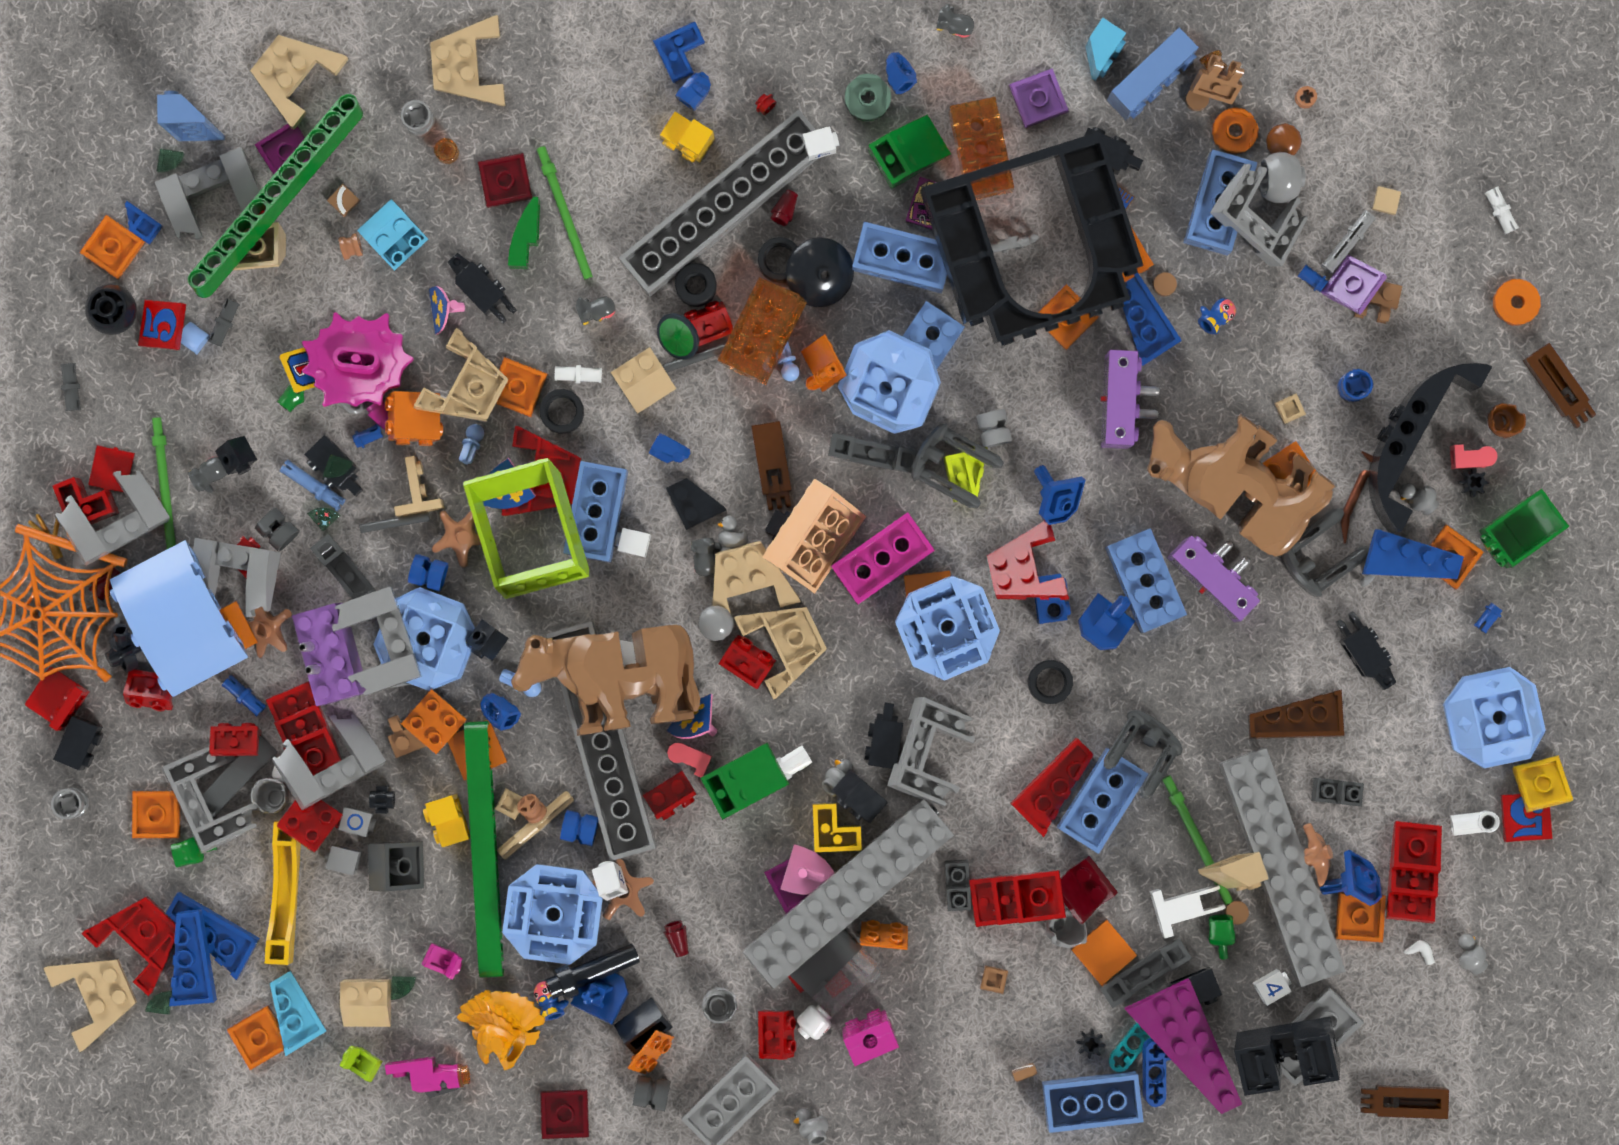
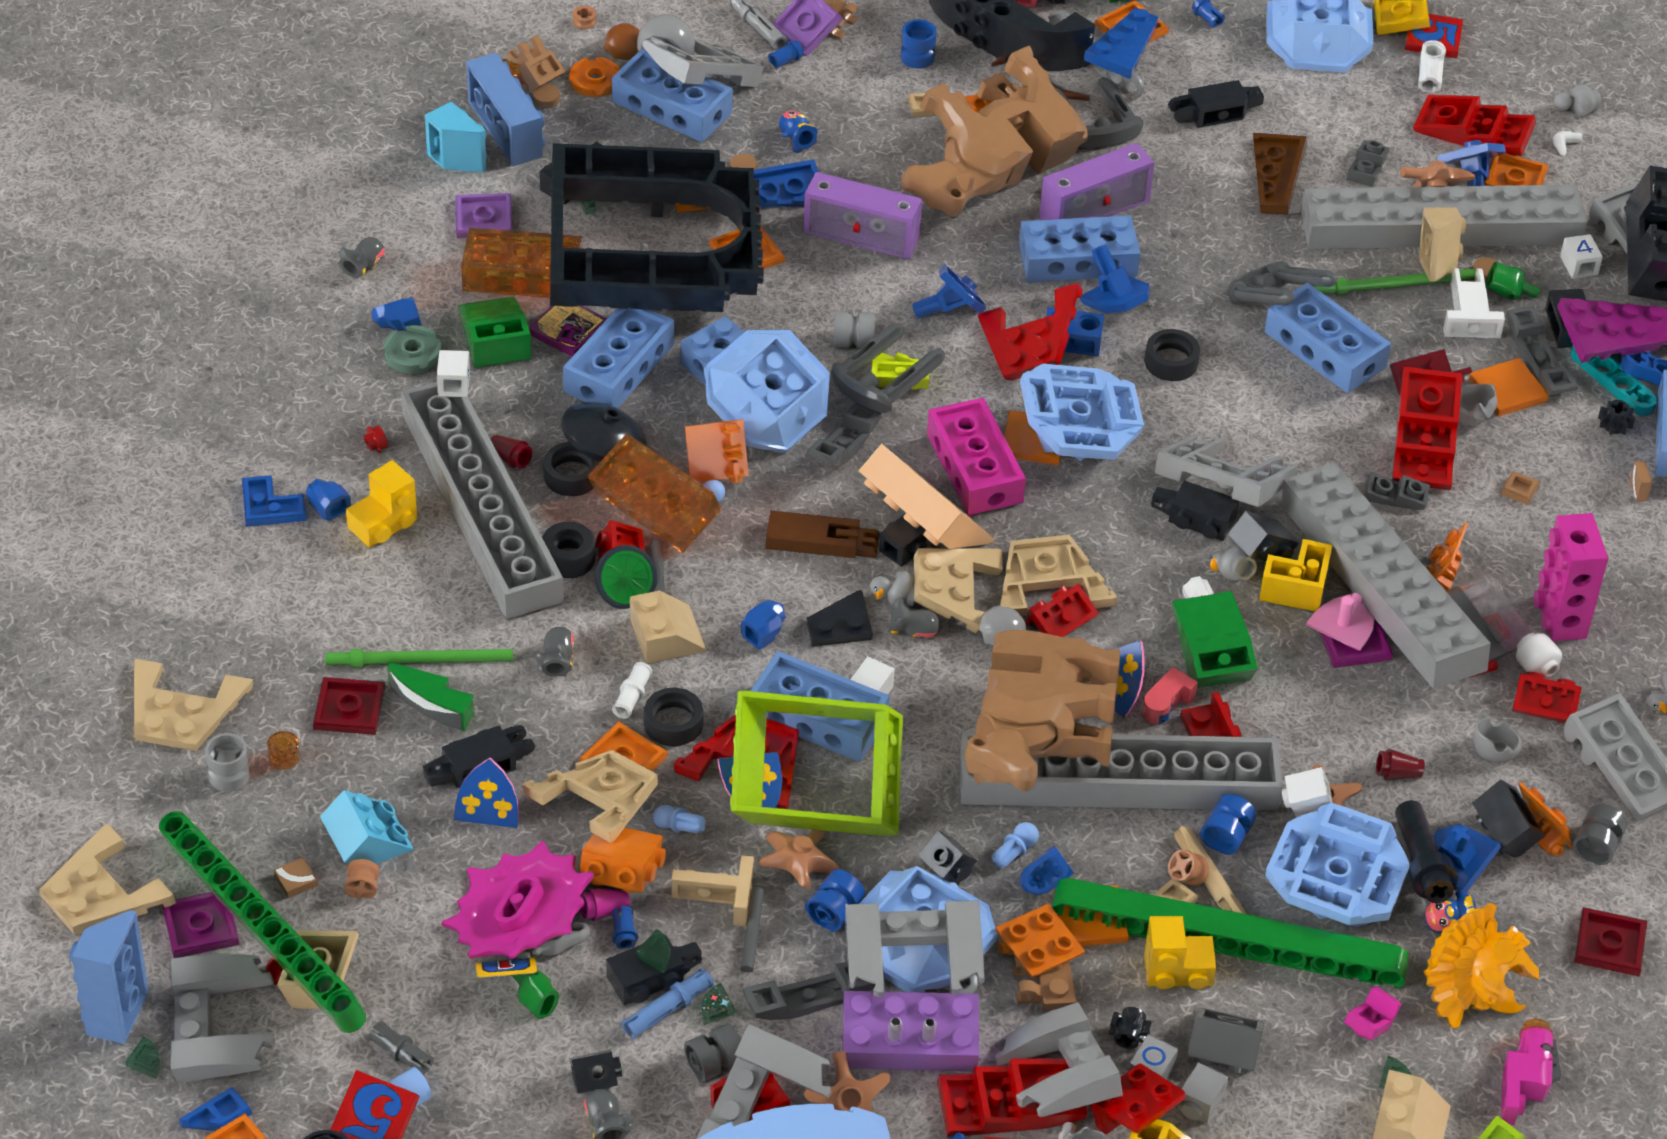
camera: 75 degrees left, 40 degrees down
(1052, 786) = (1298, 383): red wing -> none

